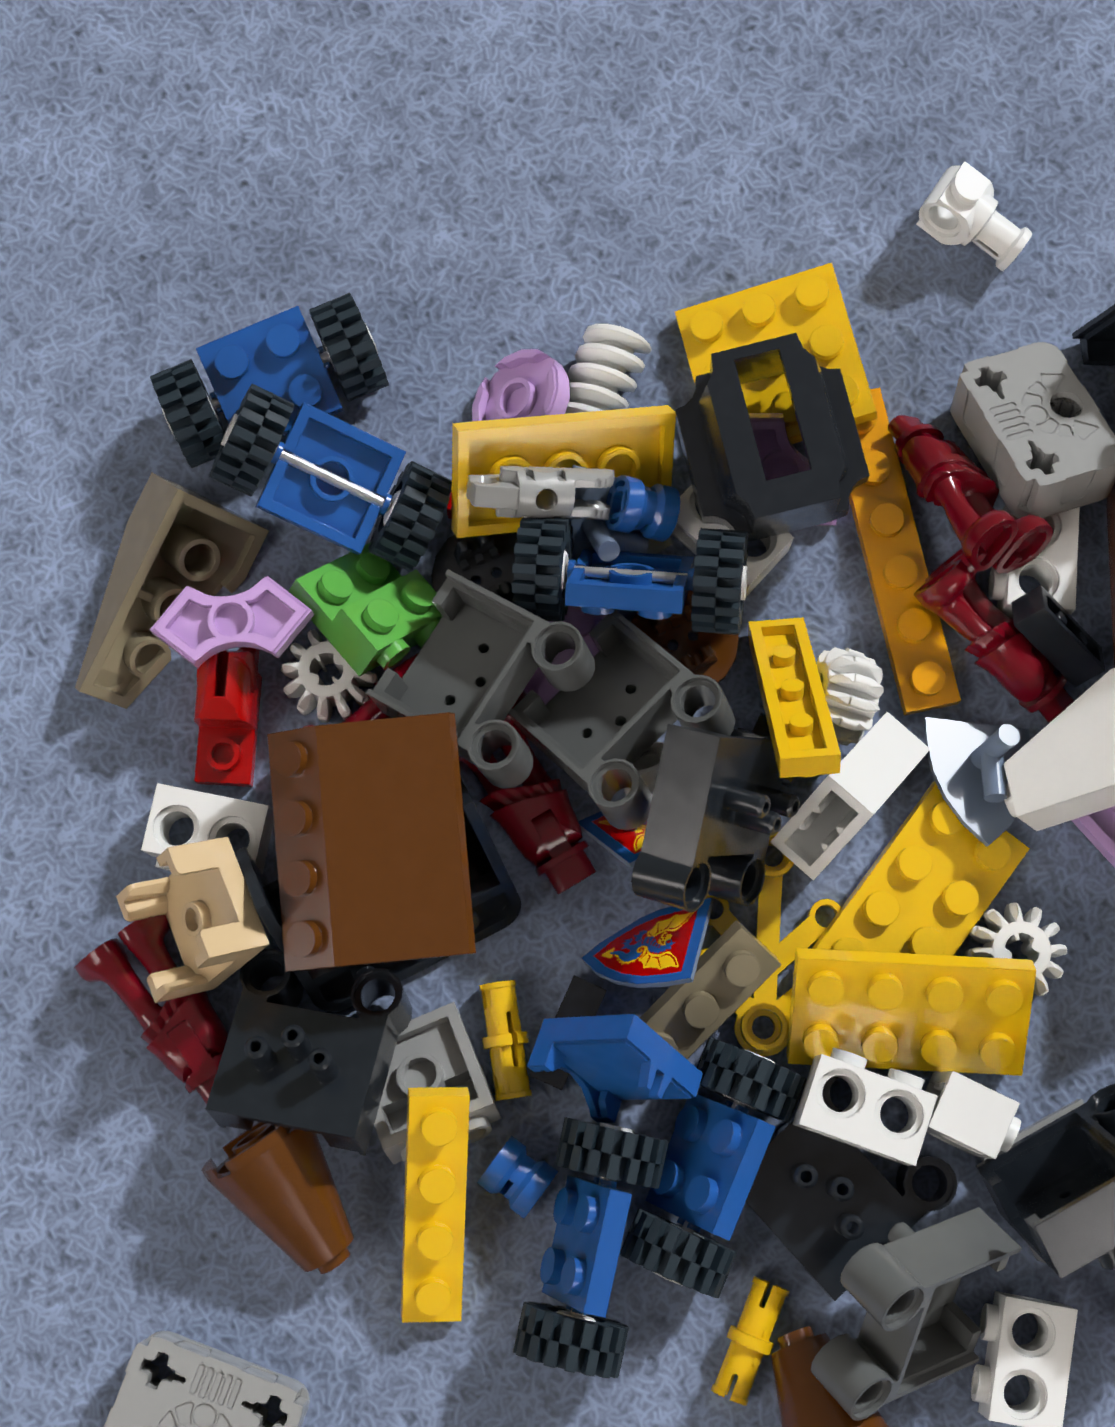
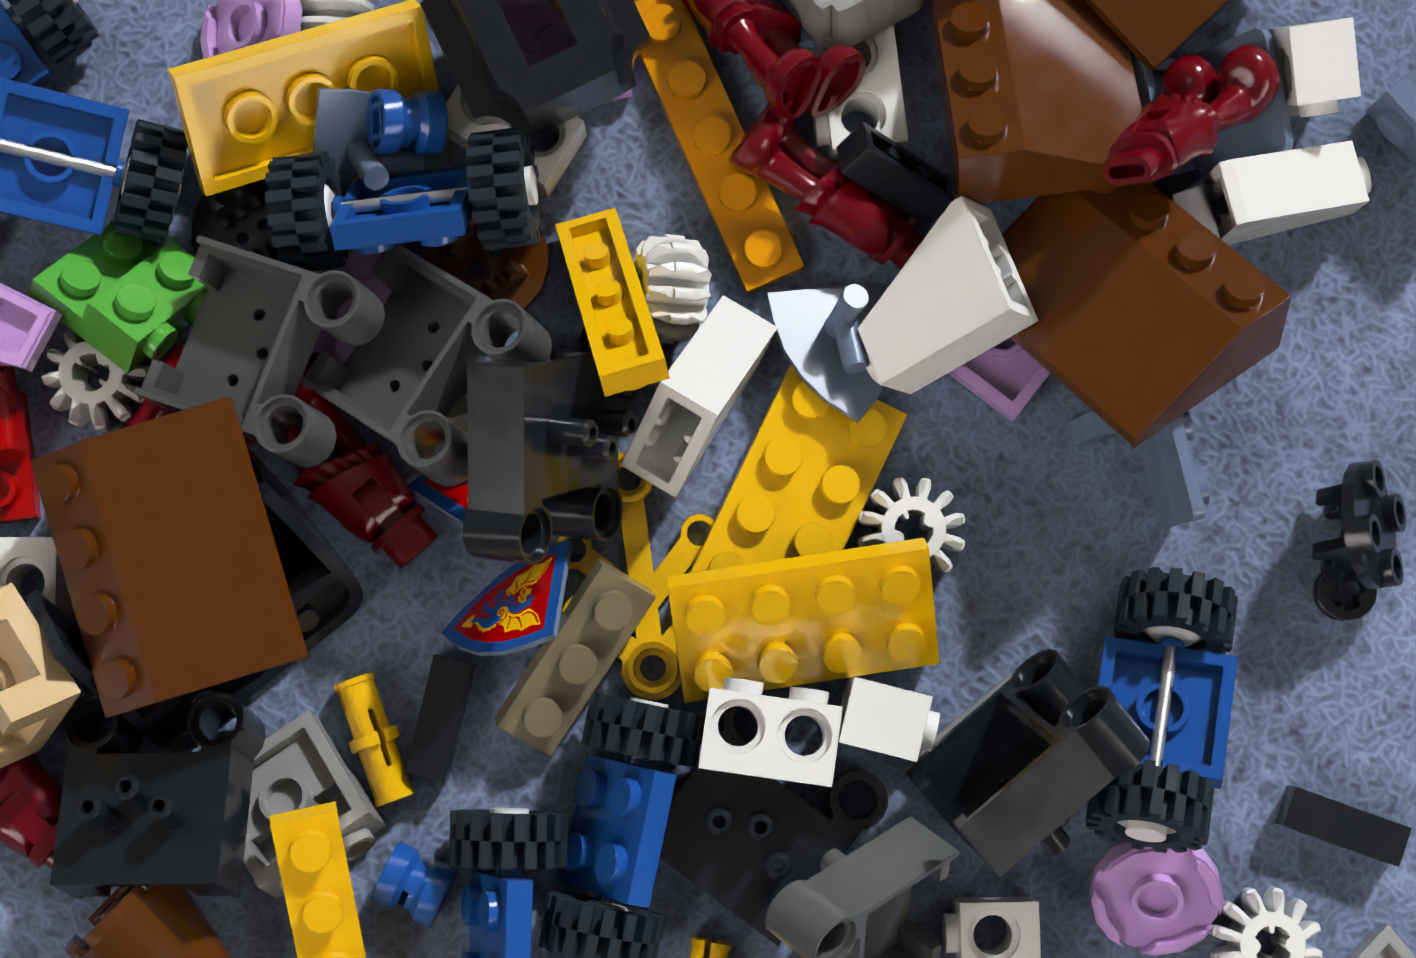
camera: 15 degrees left, 5 degrees up
(517, 490) = (256, 127): light grey hinge -> none
(614, 1061) = (489, 741): blue piece -> none

